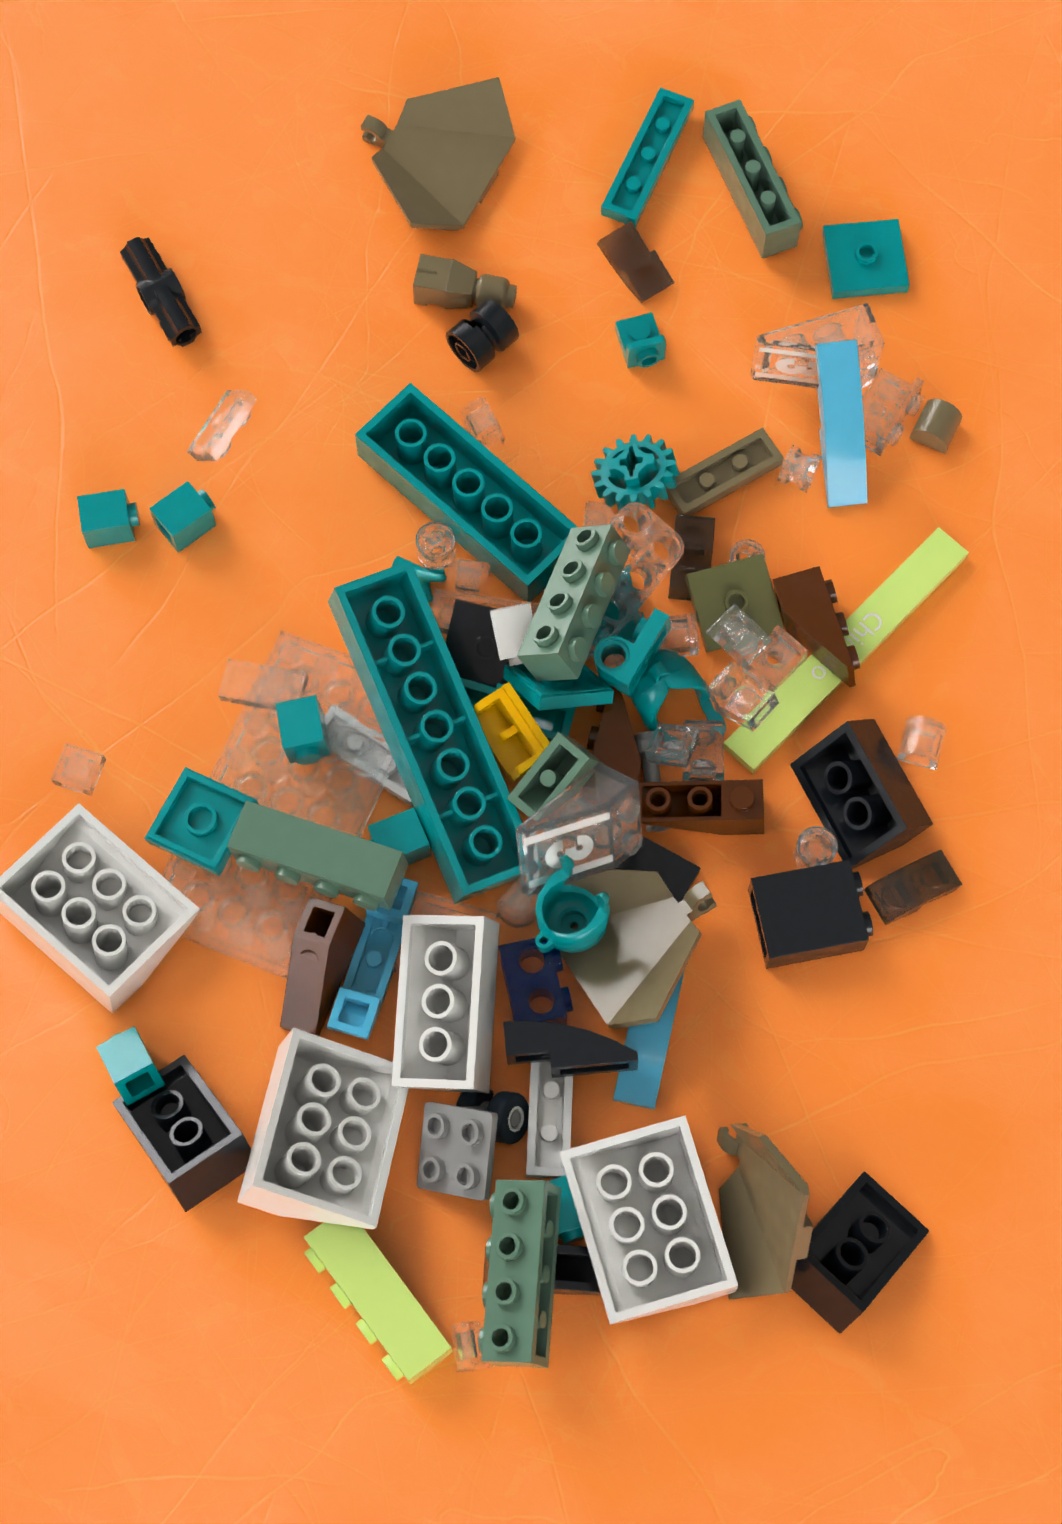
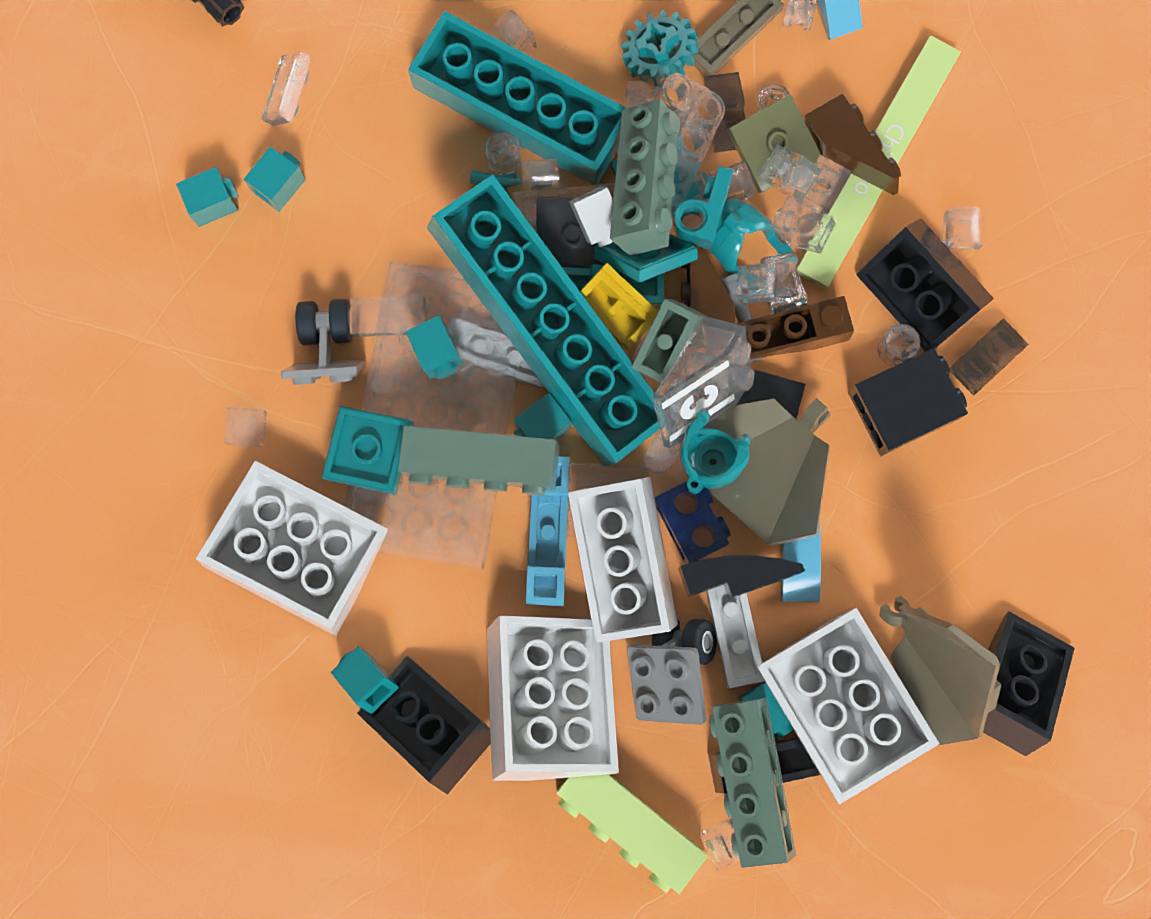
camera: 15 degrees left, 10 degrees up
(185, 683) = (319, 327): none -> plate
(318, 963) = (502, 551): reddish brown slope -> none

